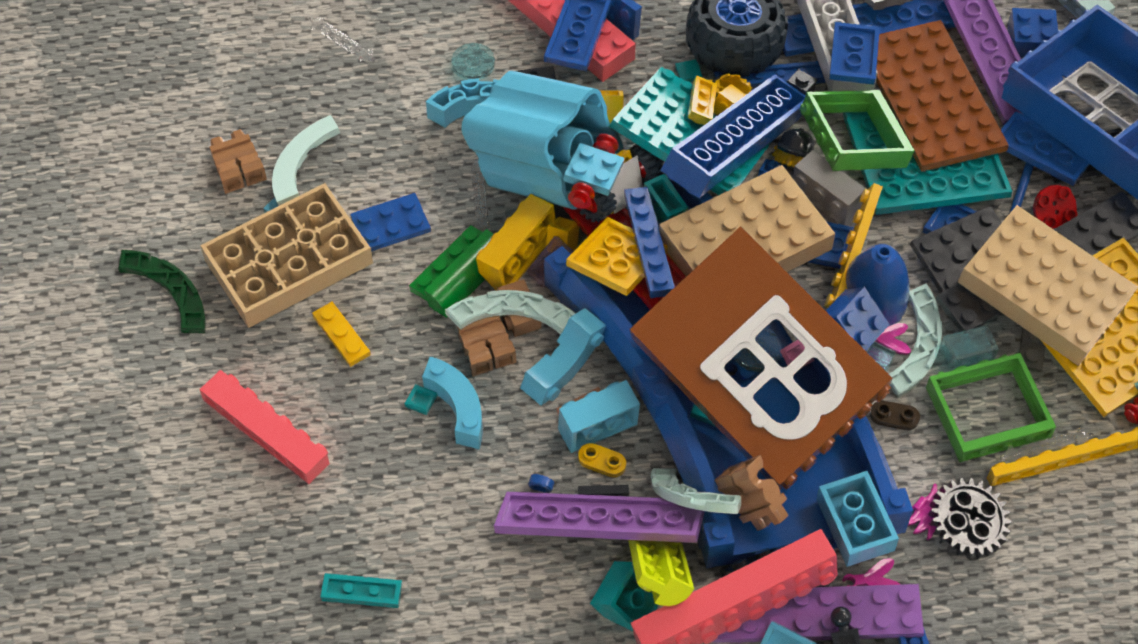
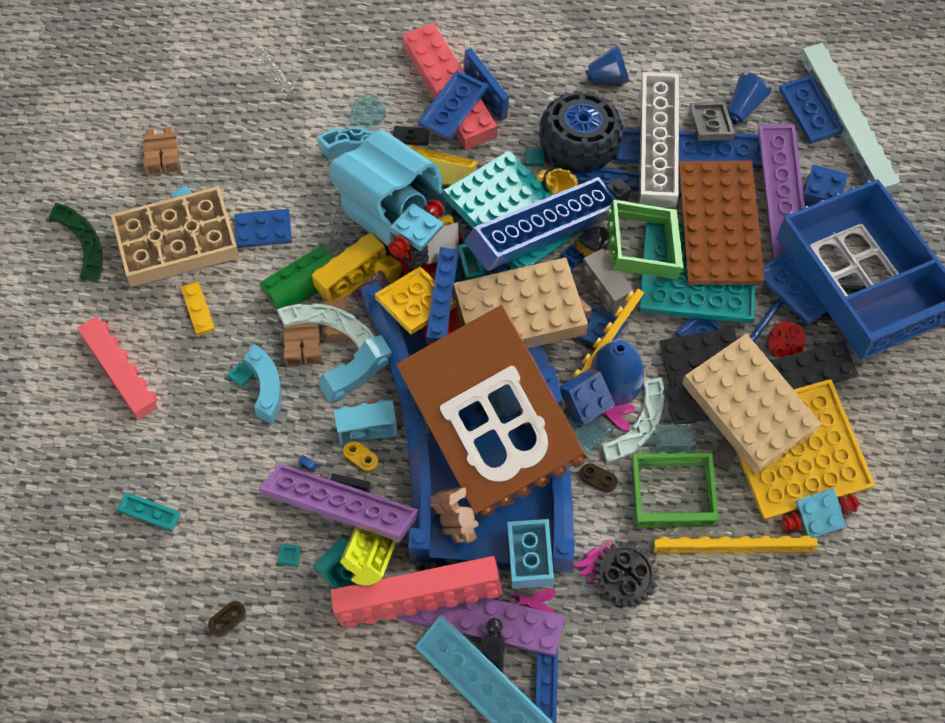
camera: 15 degrees right, 5 degrees up
(295, 153) = (206, 156): light aqua tile -> none
(555, 599) = (289, 555): none -> teal tile
(667, 486) = (405, 504): light aqua tile -> none
(702, 100) = (528, 187): yellow plate -> none
(727, 98) = (549, 189): yellow brick -> none
(854, 53) = (663, 175): blue plate -> none

